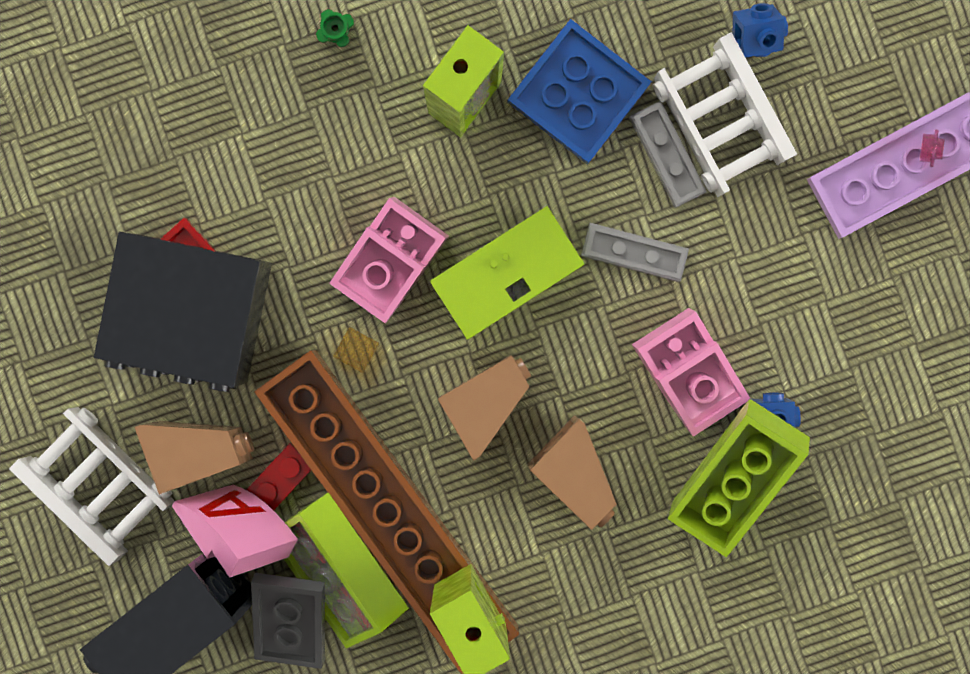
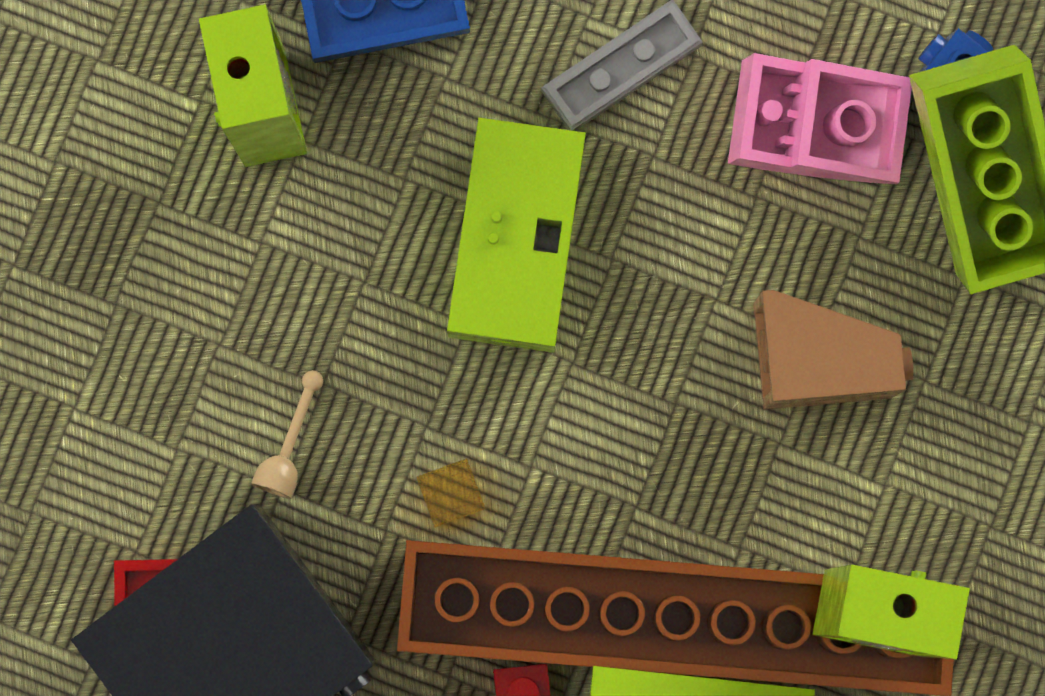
camera: 45 degrees left, 5 degrees down
(294, 258) = (278, 473): none -> tan hinge
(330, 19) = (52, 173): green plate -> none
(389, 259) = (378, 360): bright pink slope -> none
(485, 402) = (648, 390): medium nougat slope -> none

